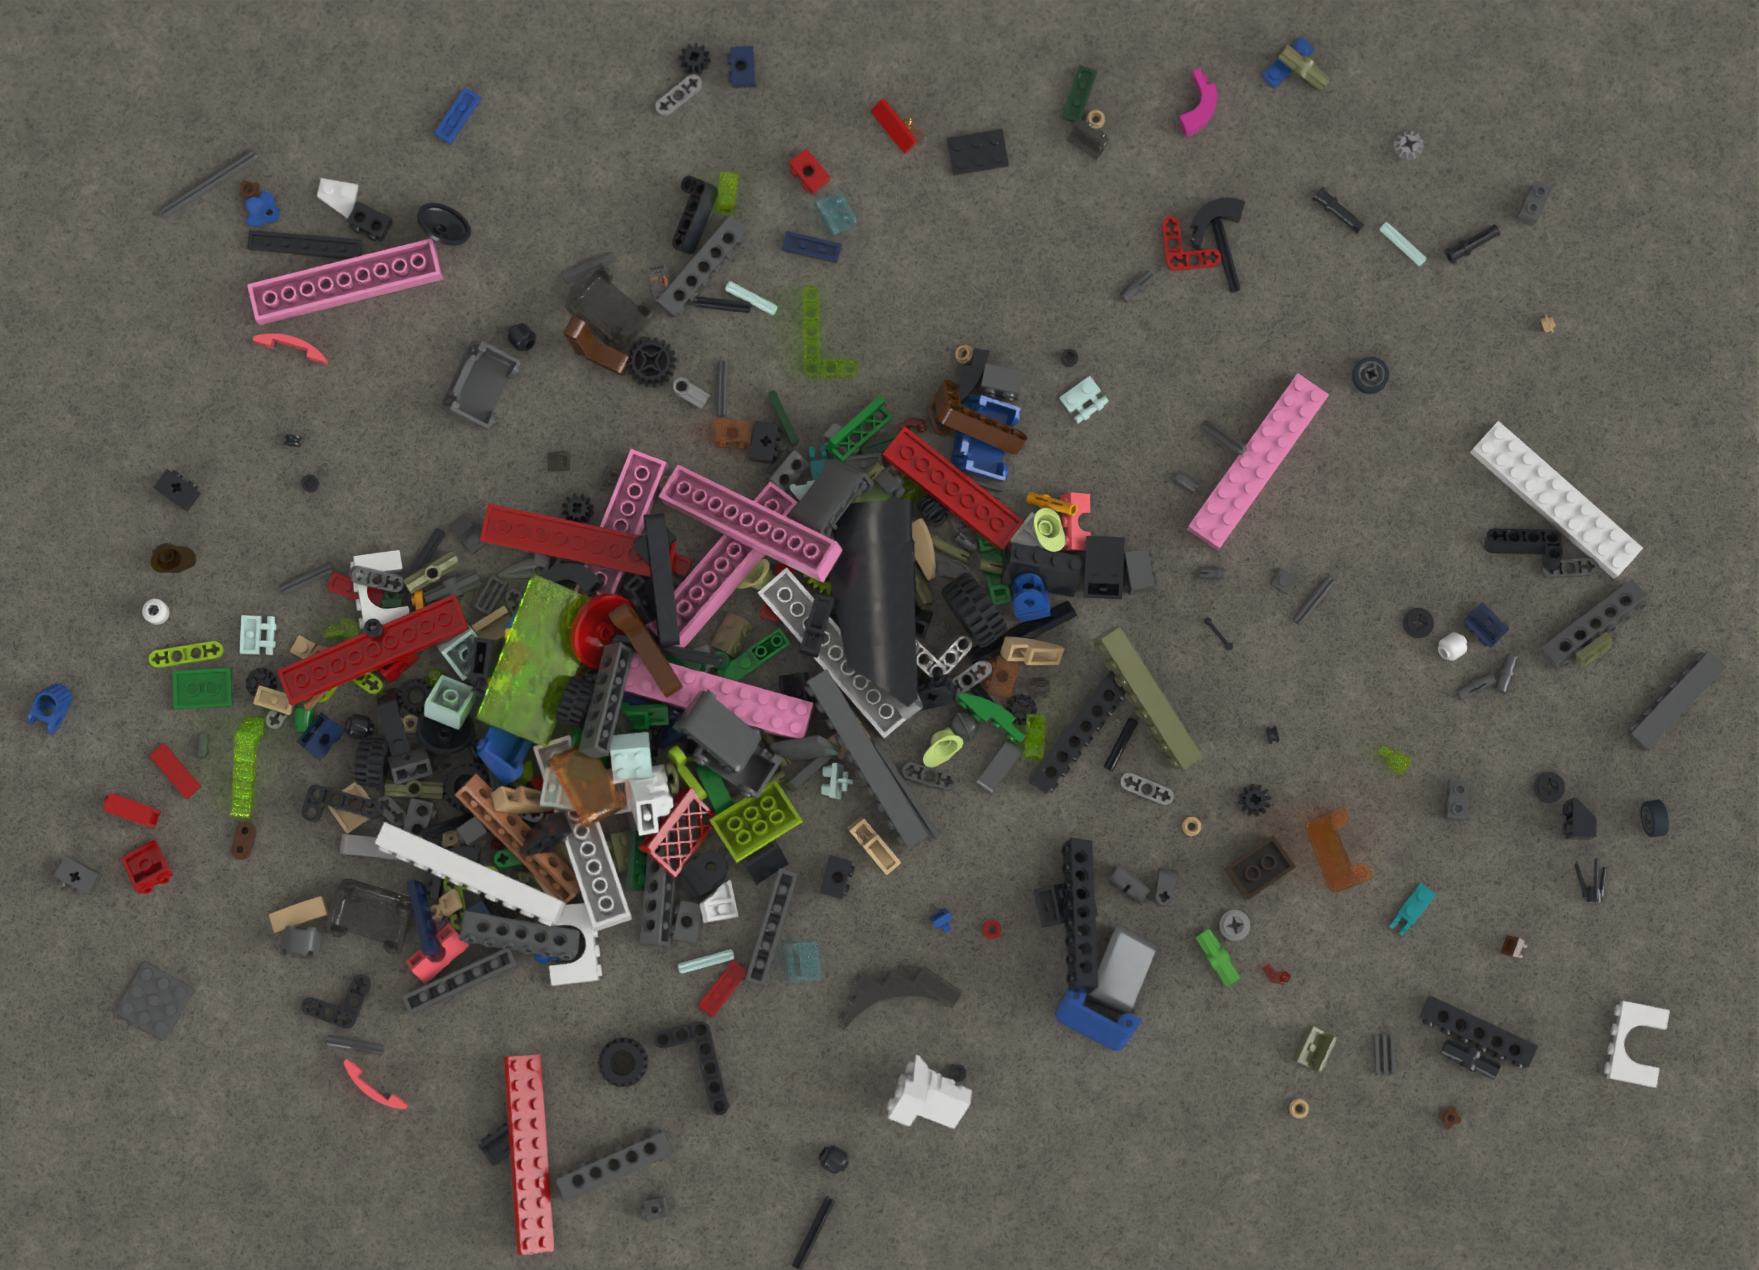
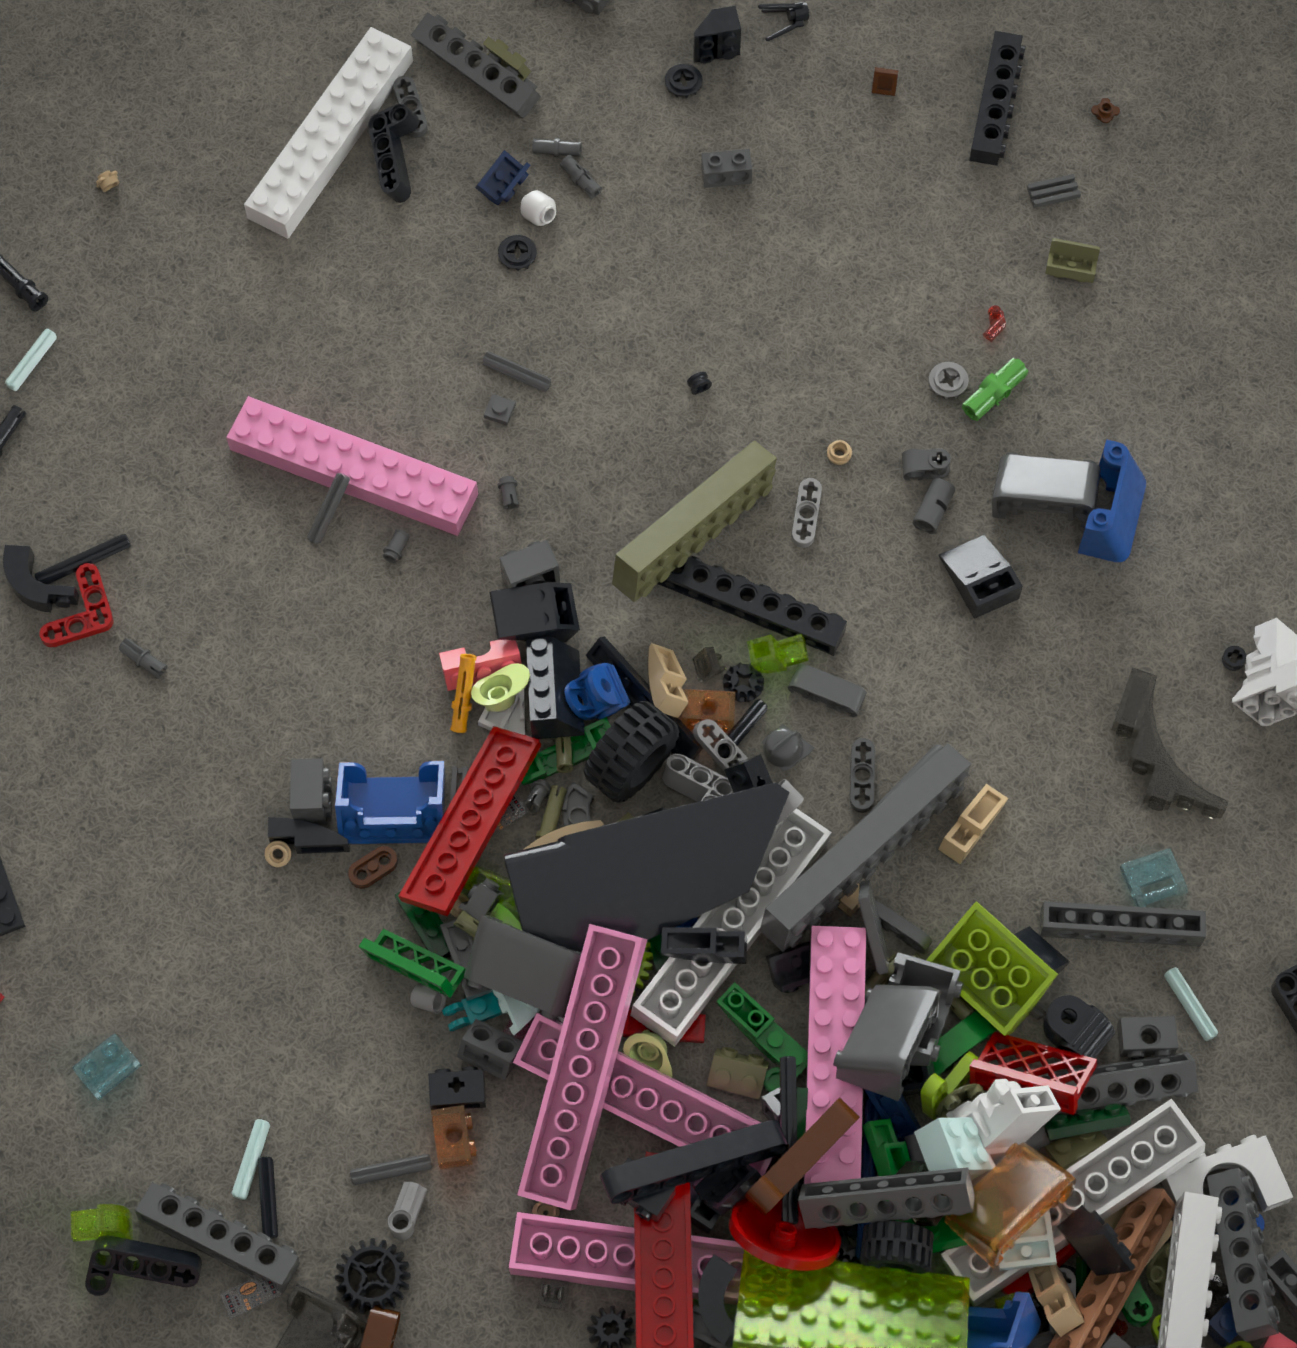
camera: 105 degrees left, 15 degrees down
(719, 904) = (1114, 999): white wing -> none
(722, 988) = (1220, 974): red tile -> none
(783, 418) = (417, 1072): dark green tile -> none
(805, 161) = (53, 1103): red brick -> none
(811, 247) = (161, 1091): dark blue plate -> none
(814, 341) = (296, 1052): clear neon green beam -> none
(837, 865) = (1017, 867): black brick -> none
(838, 781) = (915, 890): light aqua hips -> none
(914, 422) = (386, 899): clear red arm -> none
(932, 511) = (506, 840): black gear -> none
(941, 919) = (1045, 717): blue tile -> none
(943, 747) = (818, 765): yellowish green piece -> none
(973, 423) = (372, 818): reddish brown beam -> none
(985, 709) = (762, 709): green slope -> none
(996, 934) = (1039, 649): red plate -> none
(1064, 355) = (252, 727): black bush -> none
(1080, 395) = (306, 698): light aqua plate -> none
(1085, 907) = (996, 540): black brick -> none
(1120, 744) = (757, 554): black axle -> none
(1208, 621) = (598, 456): black hinge -> none
(1250, 805) = (787, 394): black gear -> none
(1259, 868) = (871, 361): dark brown brick -> none
(1305, 1108) = (1150, 262): tan plate -> none
(1331, 852) = (826, 286): clear orange windscreen -> none
(1370, 365) = (219, 370): wheel -> none
(1397, 761) = (694, 243): clear neon green plate -> none
(1413, 907) = (870, 194): teal hinge -> none
(1470, 1059) = (1031, 100): black piece -> none

